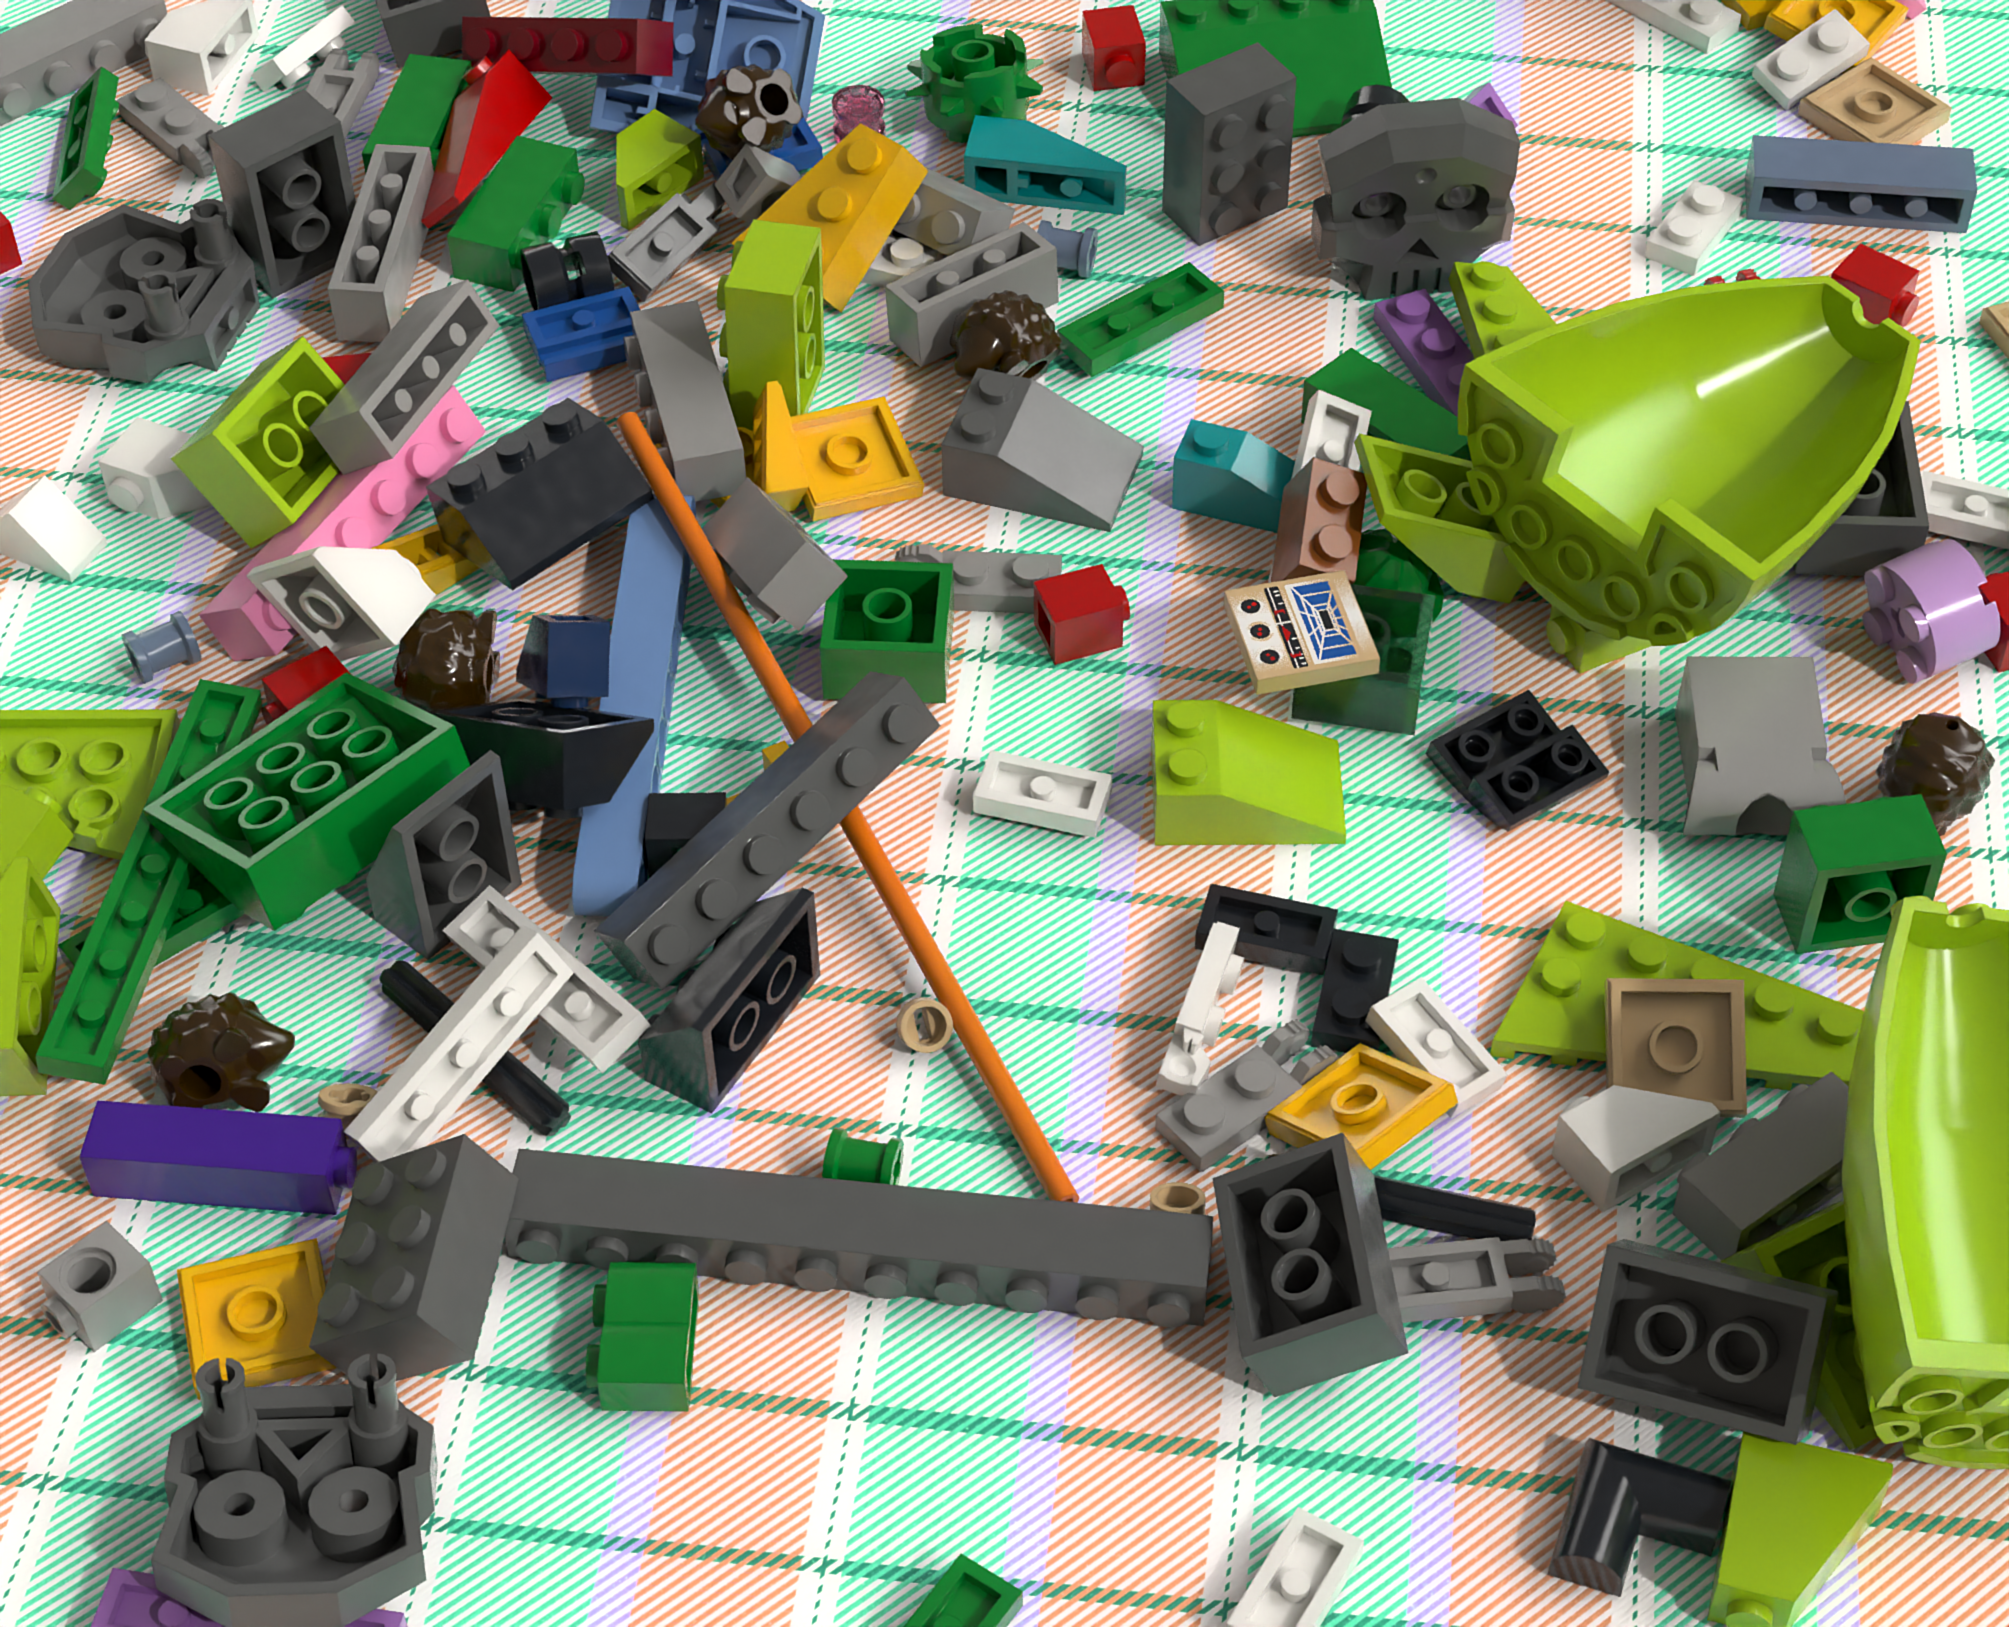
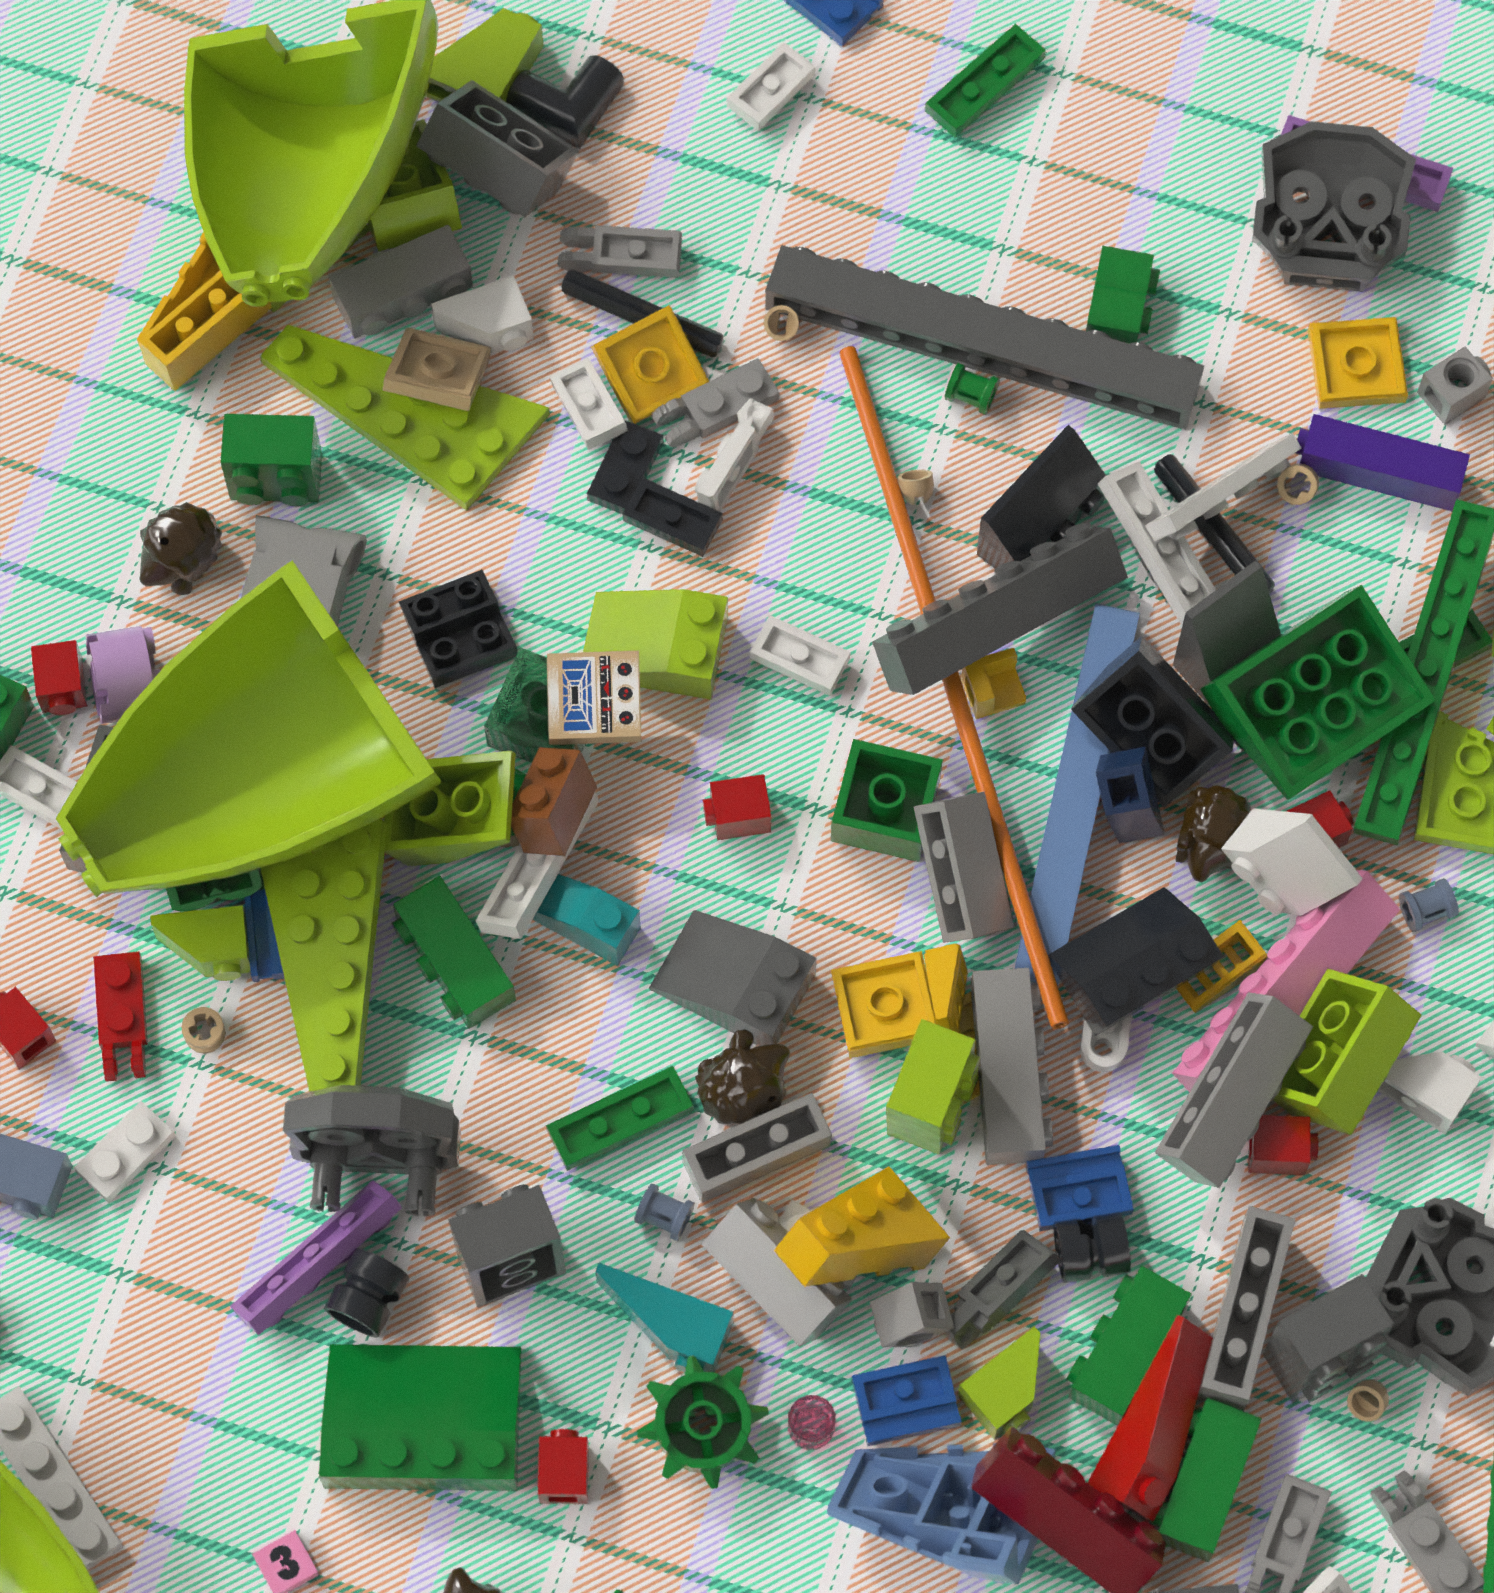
camera: 170 degrees left, 20 degrees up
(217, 1054) = (1383, 527): dark brown animal -> none
(416, 1259) = (1259, 342): dark grey brick -> none
(675, 820) = (1055, 655): black panel -> none
(748, 109) = (917, 1373): dark brown animal -> none
(989, 578) = (802, 869): light grey hinge -> none
(1308, 1266) = (716, 246): dark grey brick -> none
(1425, 344) = (388, 1027): medium lavender plate -> none

